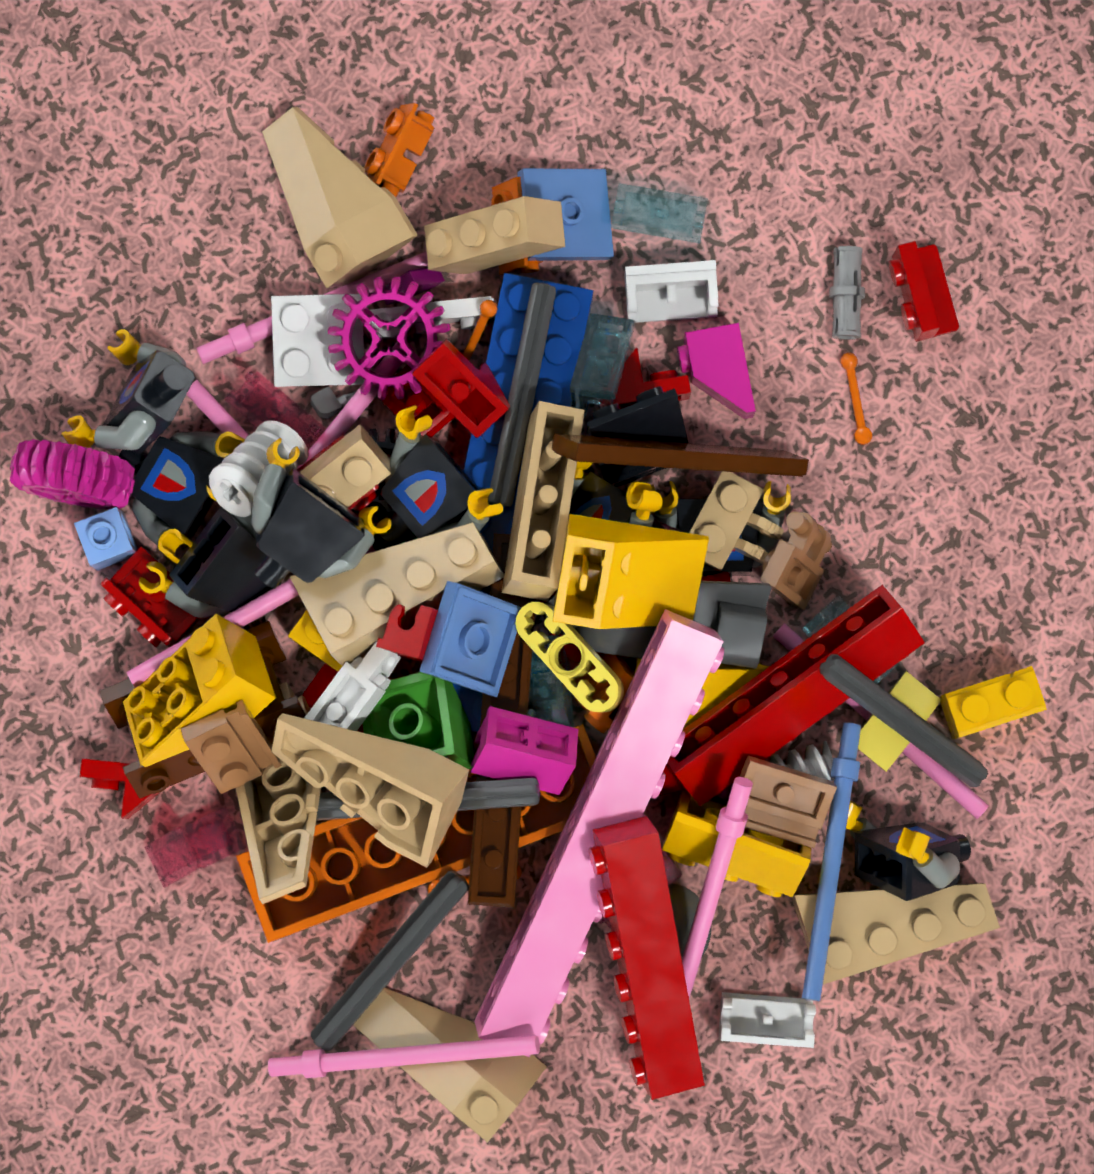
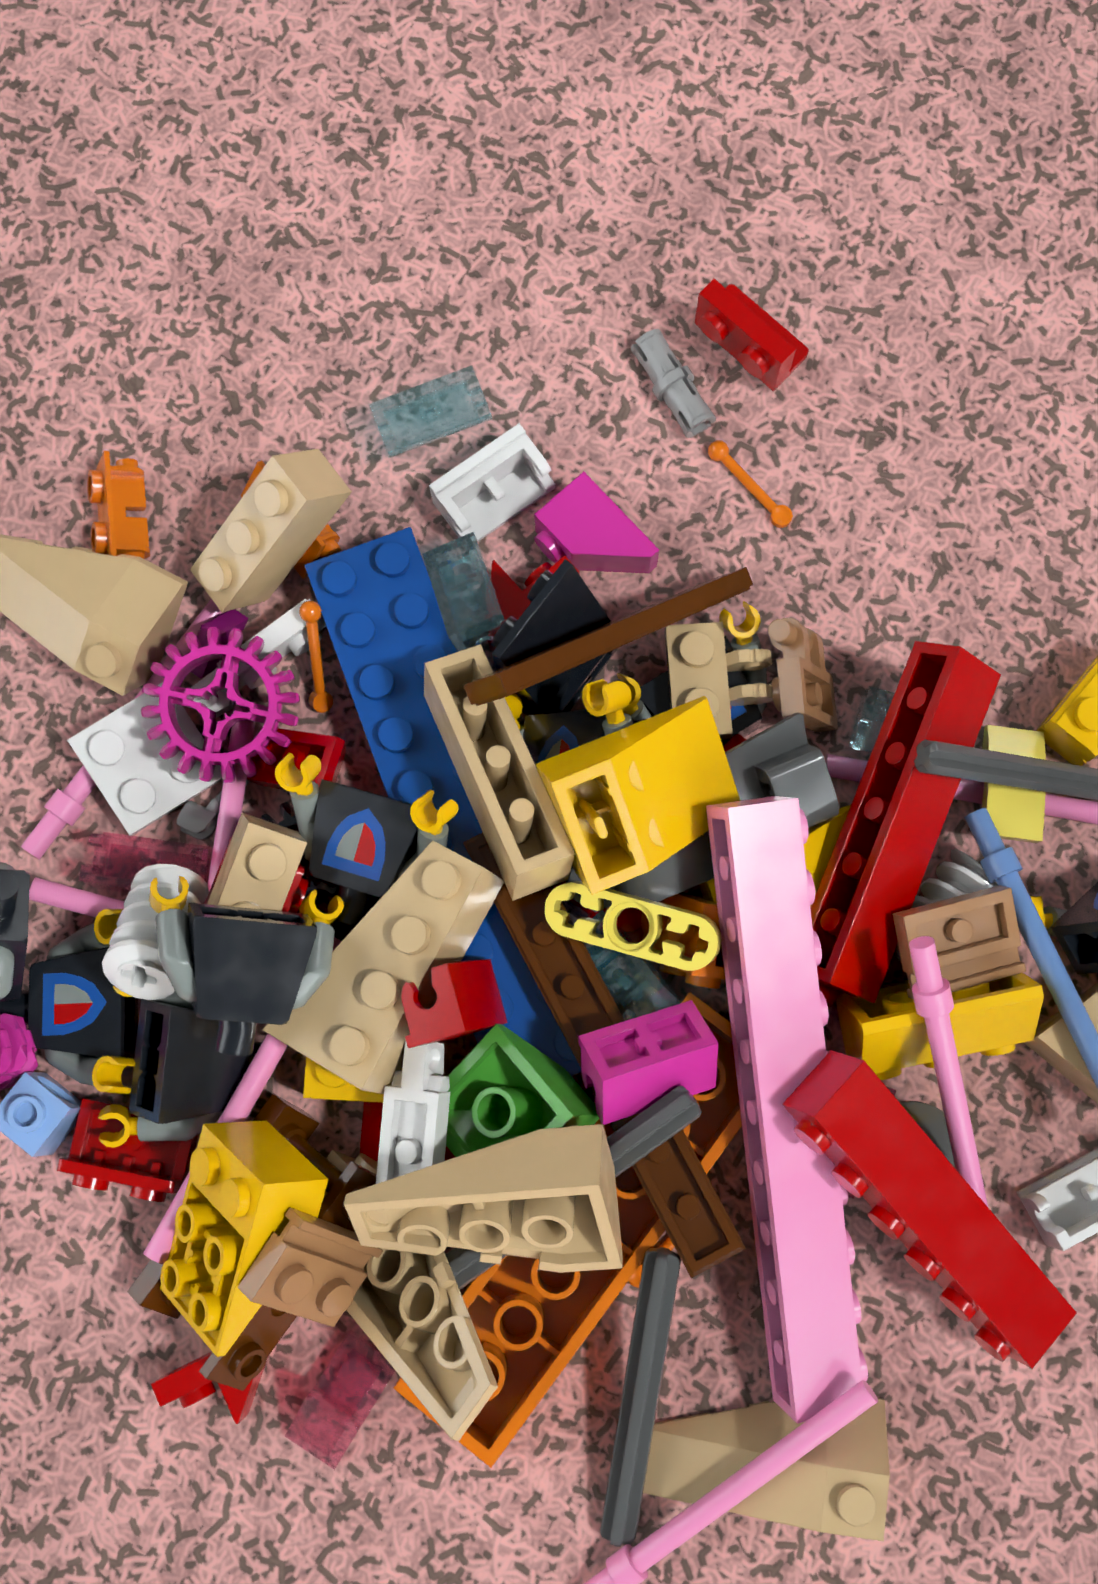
camera: 30 degrees left, 5 degrees down
(462, 388) = (331, 706): red slope -> none
(471, 639) = (510, 973): medium blue plate -> none
(522, 394) = (401, 674): dark grey axle -> none
(584, 210) = (356, 460): medium blue plate -> none

